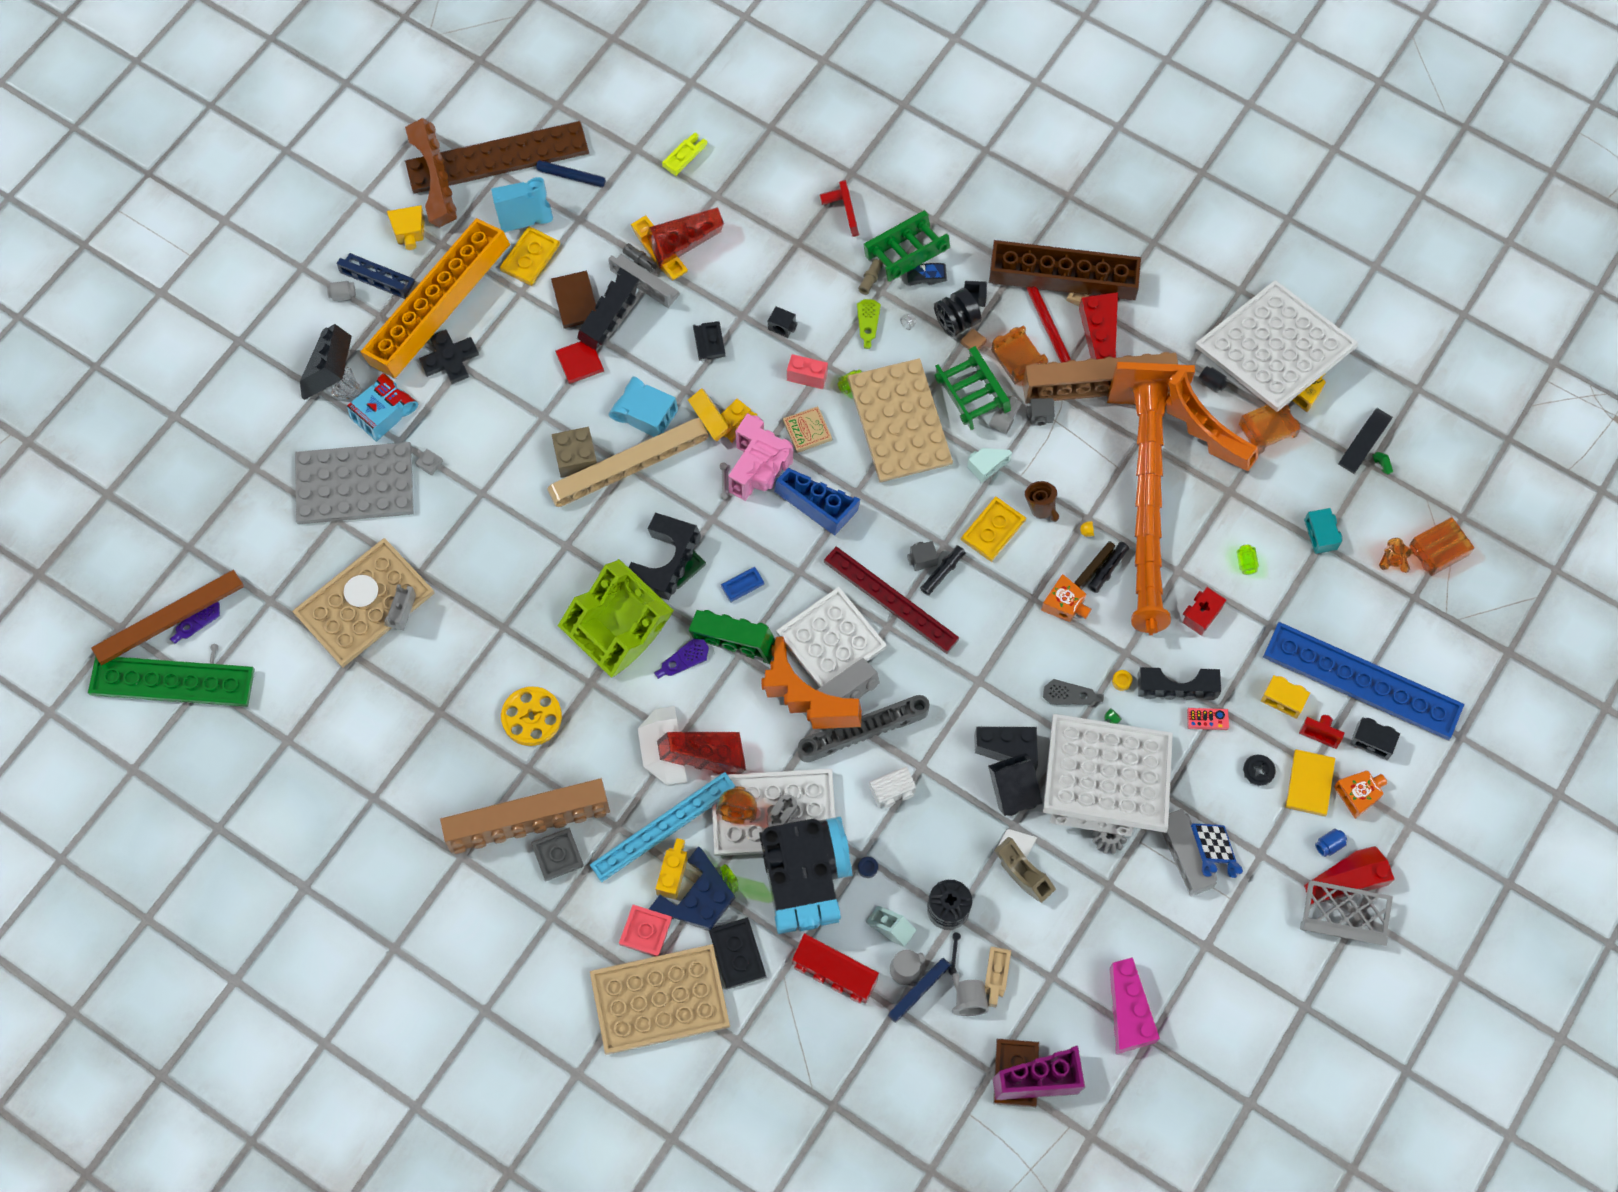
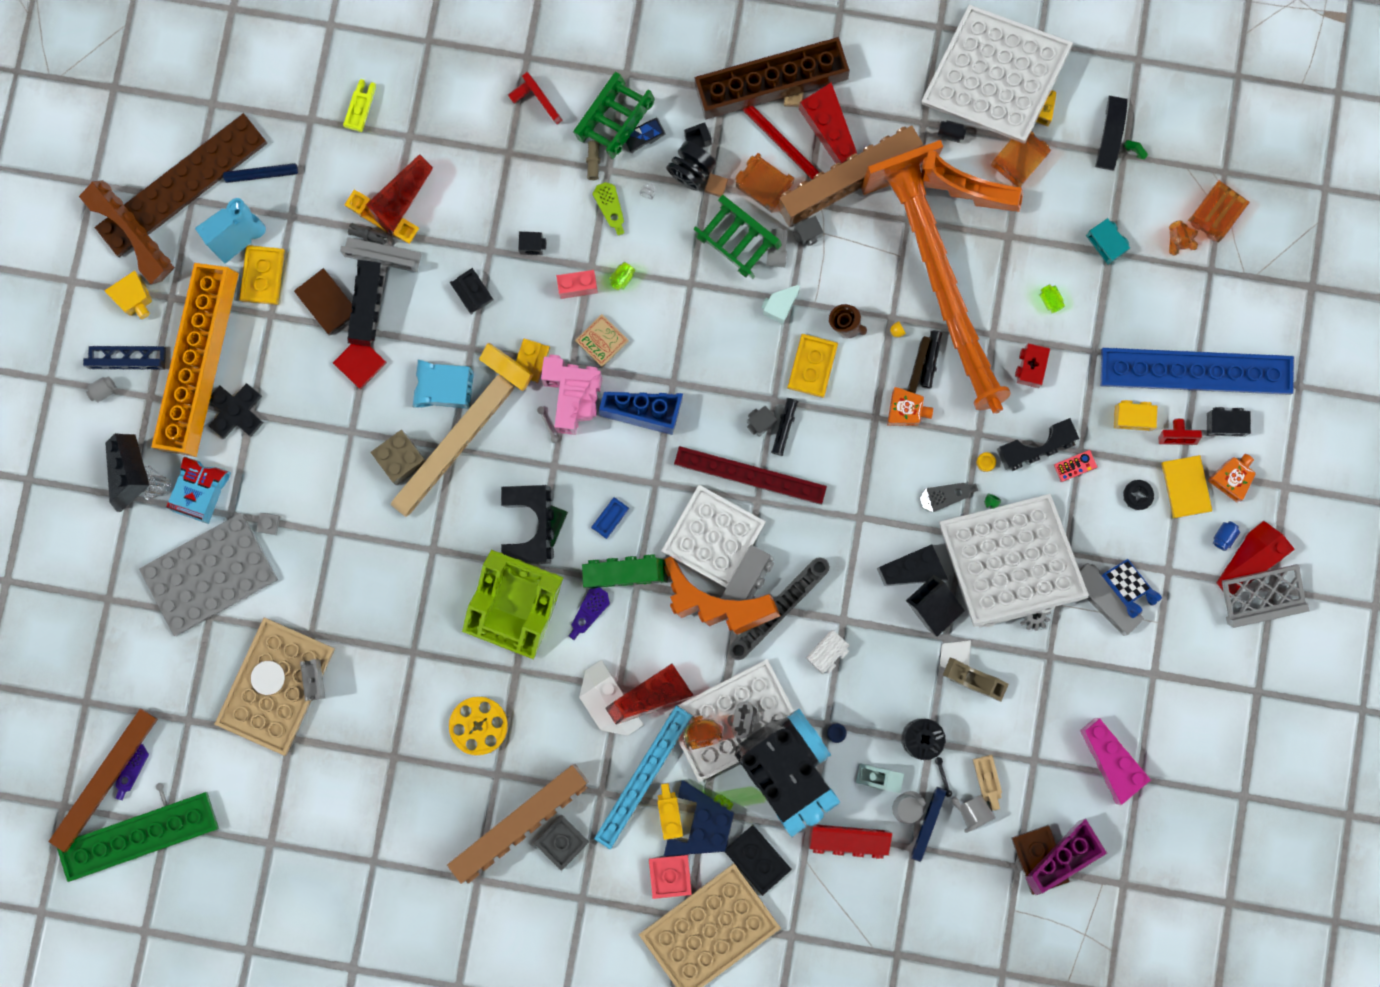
camera: 20 degrees left, 15 degrees up
(899, 420) = (683, 296): tan plate -> none

